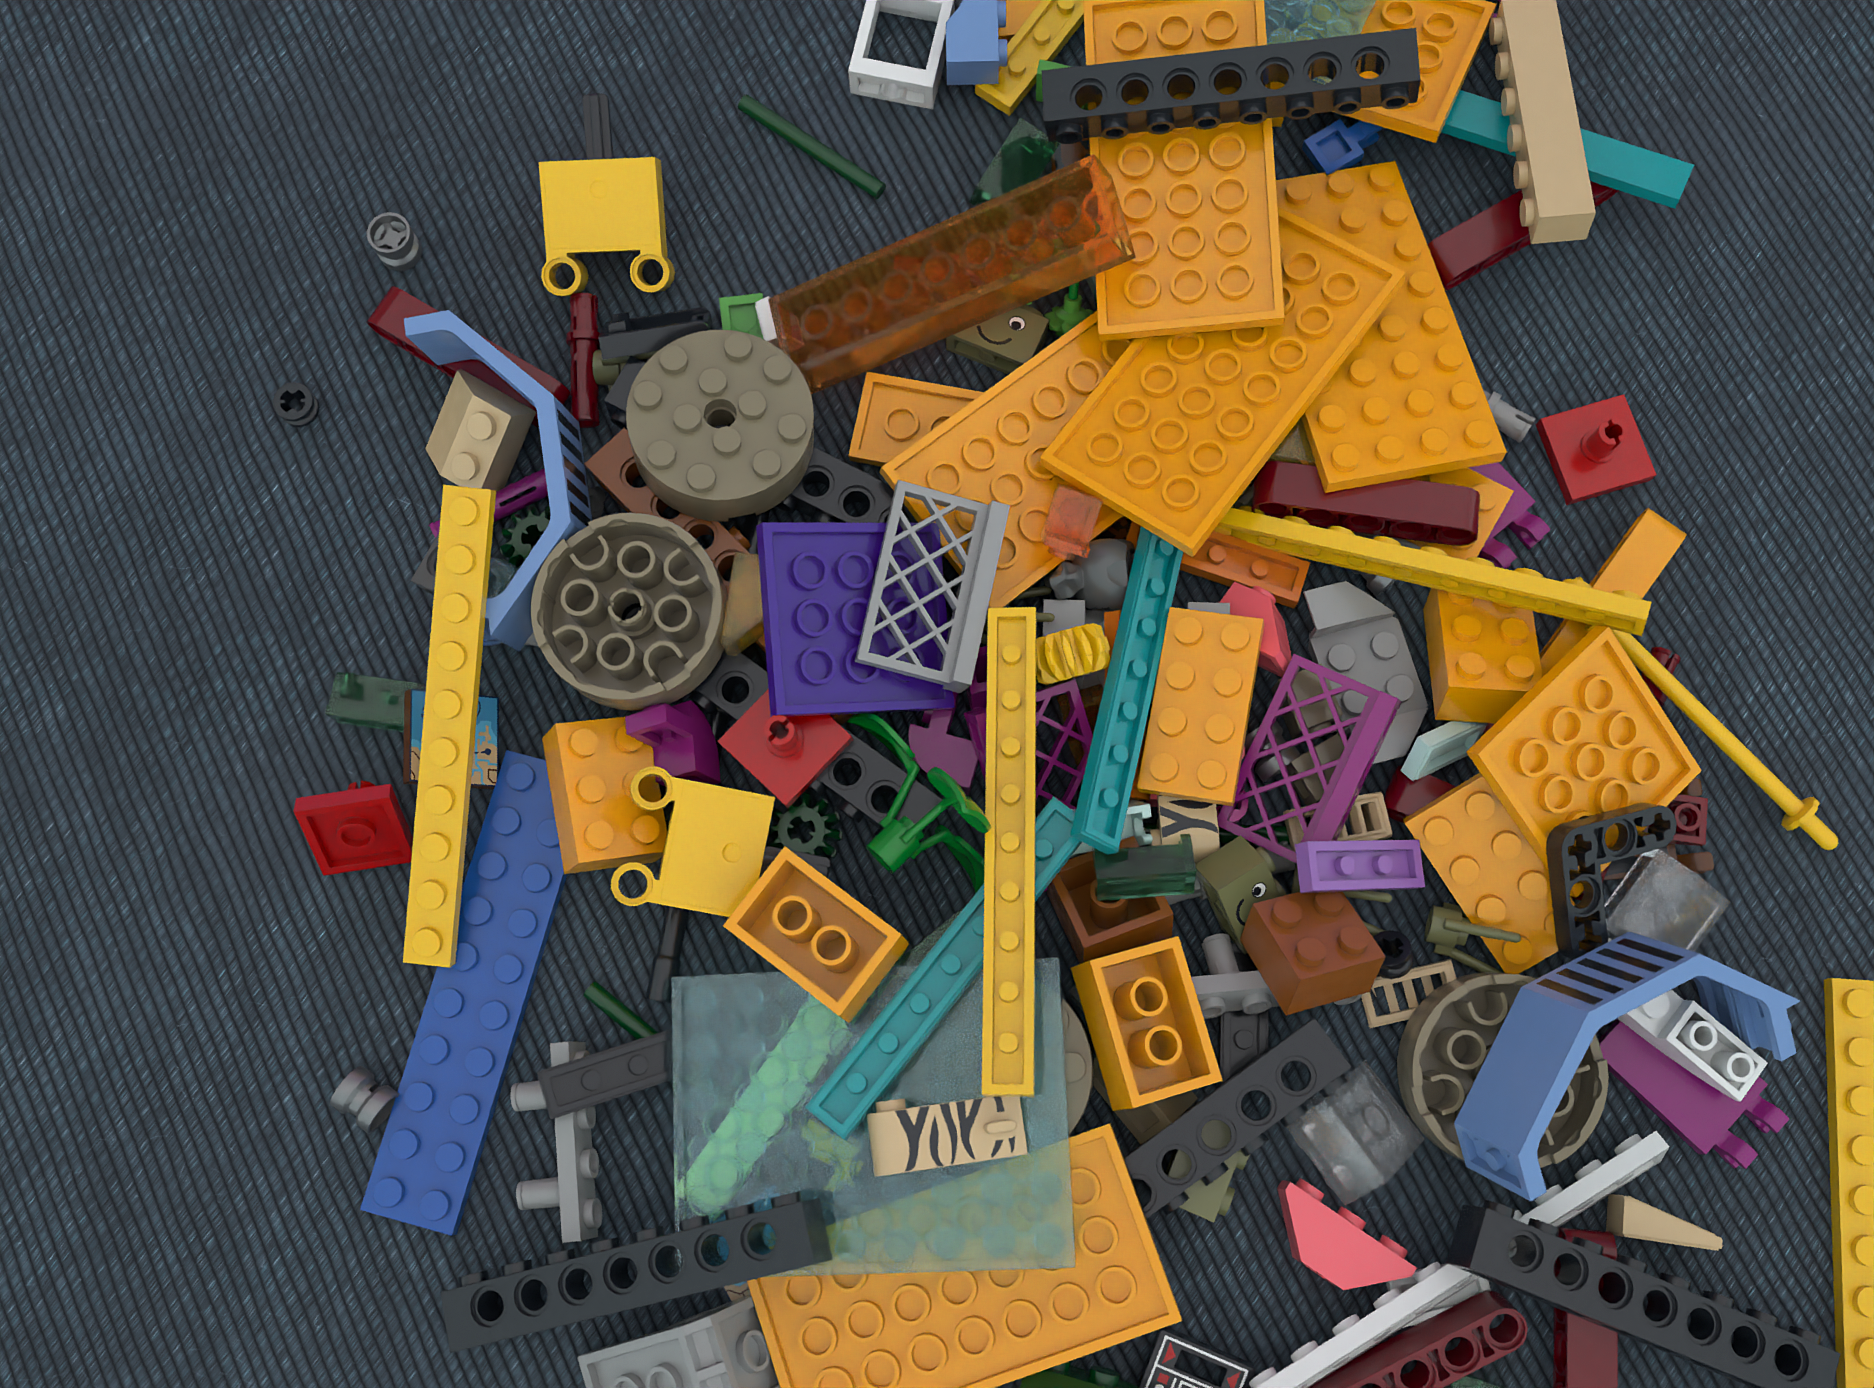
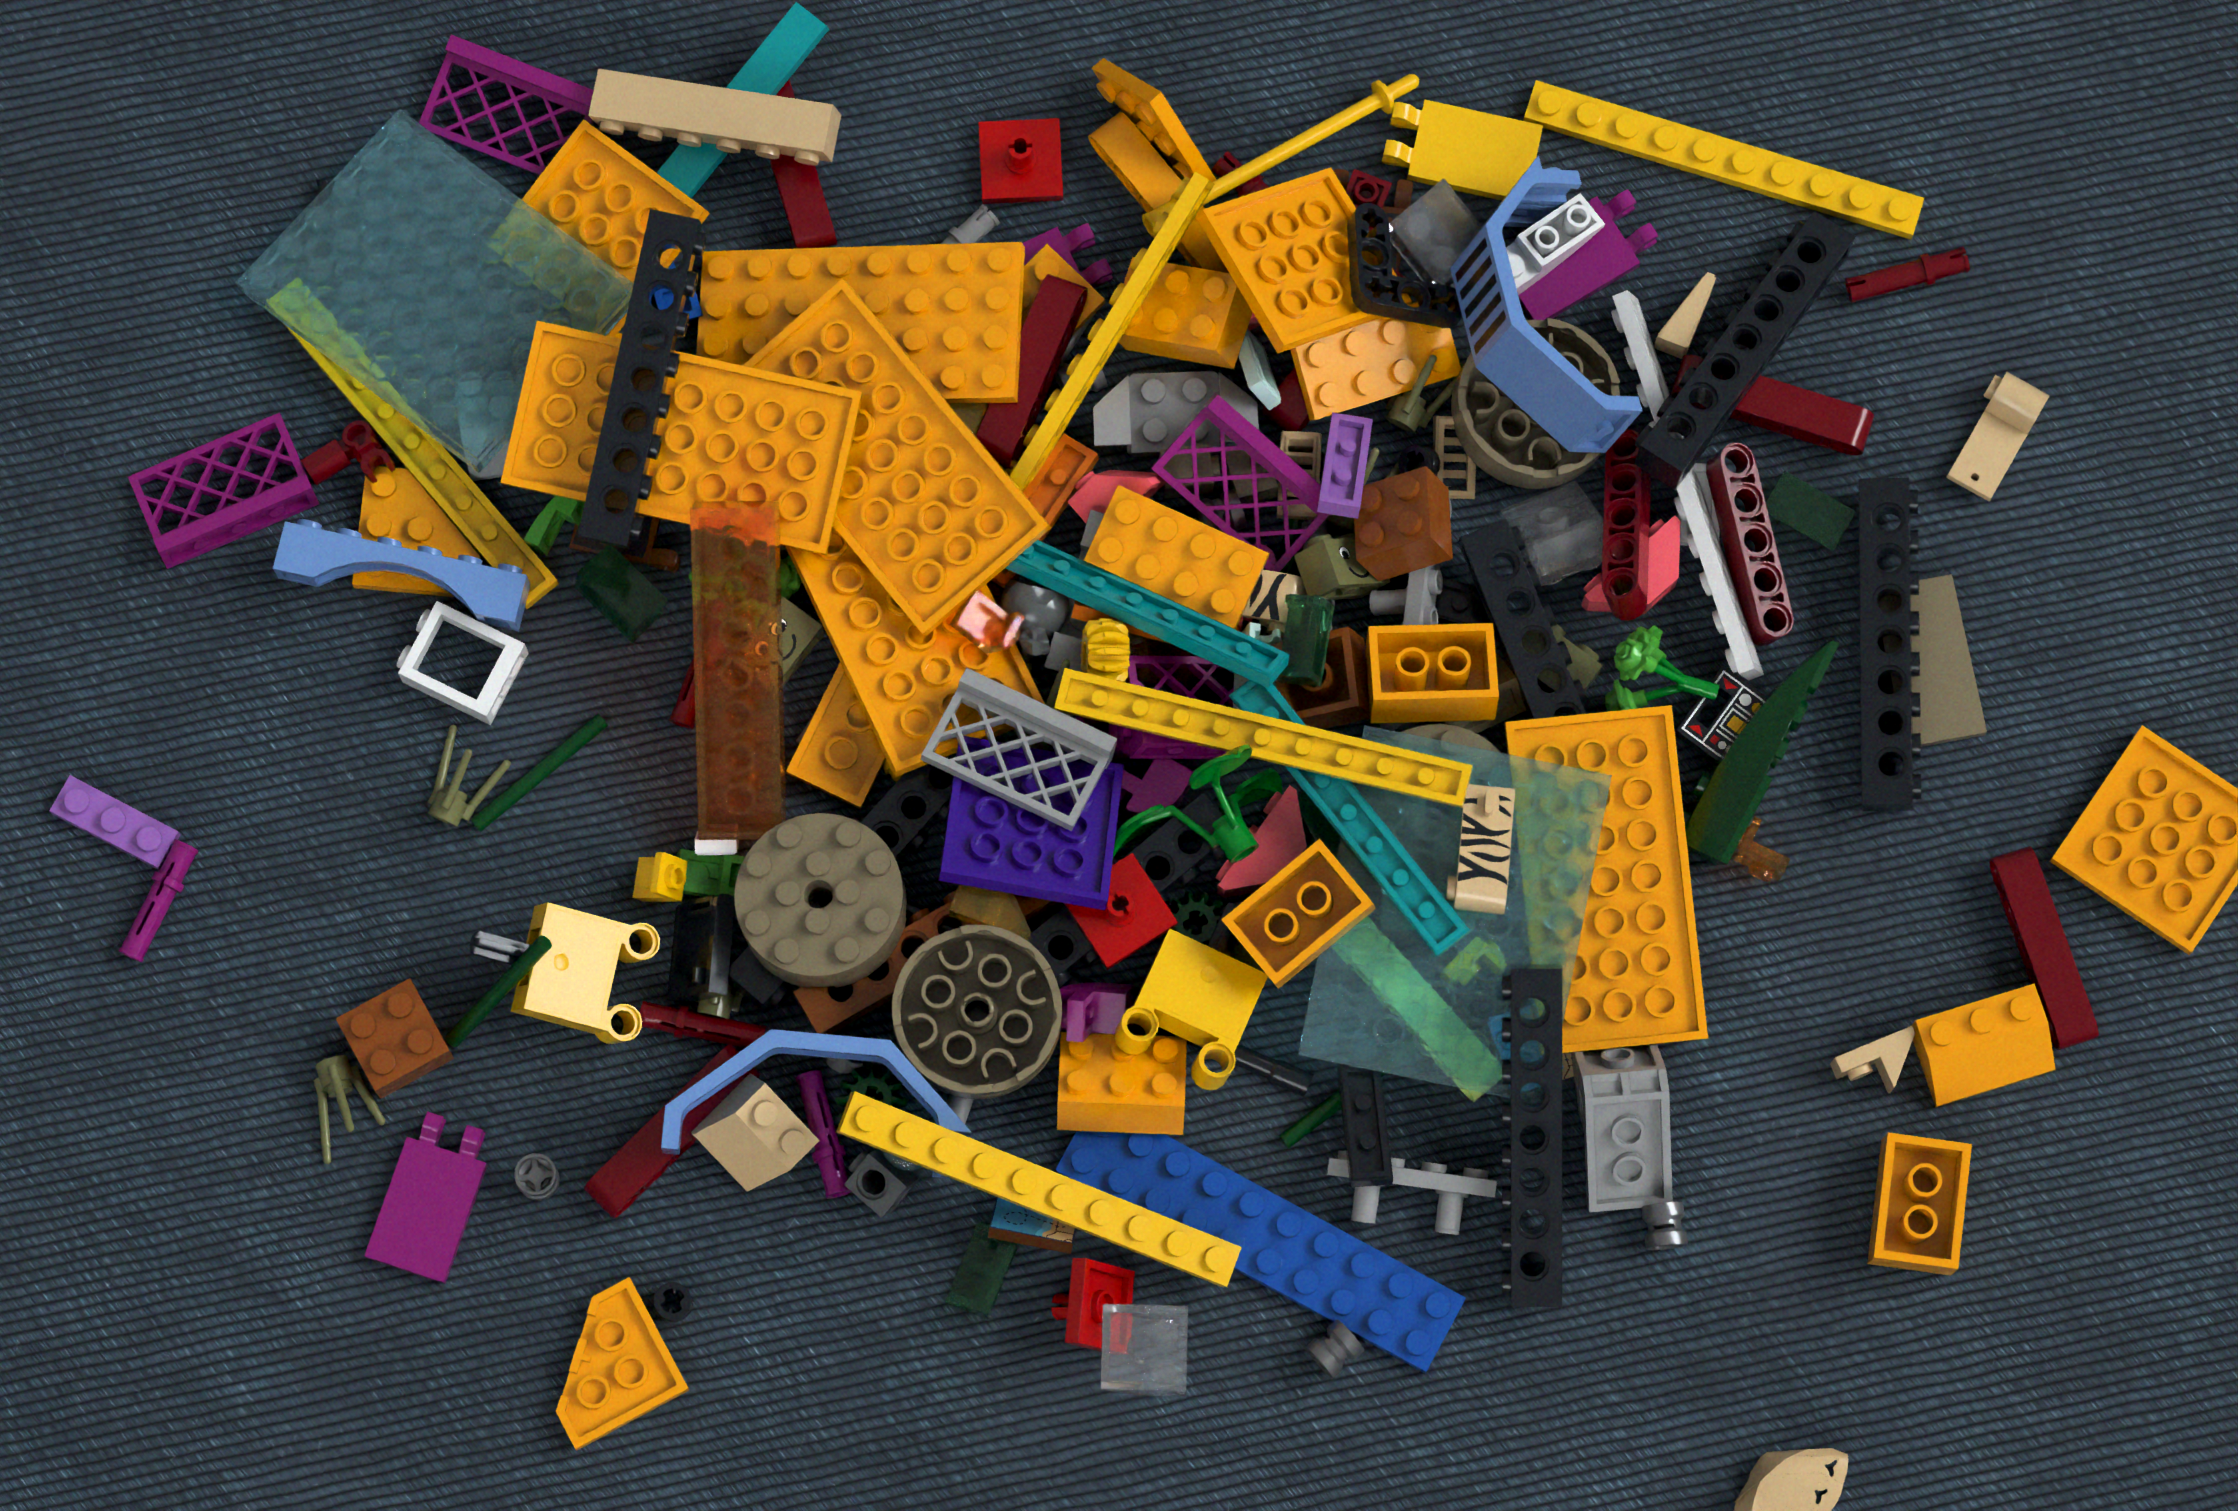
camera: 80 degrees left, 0 degrees up
(217, 366) = (616, 1368): none -> light orange plate
(318, 890) = (1144, 1349): none -> clear slope
(355, 153) = (428, 1202): none -> magenta tile
(457, 37) = (337, 1079): none -> olive plant
(505, 76) = (394, 1038): none -> dark orange brick
(563, 145) = (498, 991): none -> dark green bar
(724, 280) = (660, 878): none -> yellow bracket
(758, 69) = (449, 803): none -> olive plant
(908, 896) = (1279, 841): none -> coral slope
(1235, 1268) = (1642, 653): none -> bright green plant
(1370, 1221) = (1623, 540): none -> dark red beam
(1692, 565) = (1153, 117): none -> light orange plate
(1773, 914) = (1464, 146): none -> yellow tile

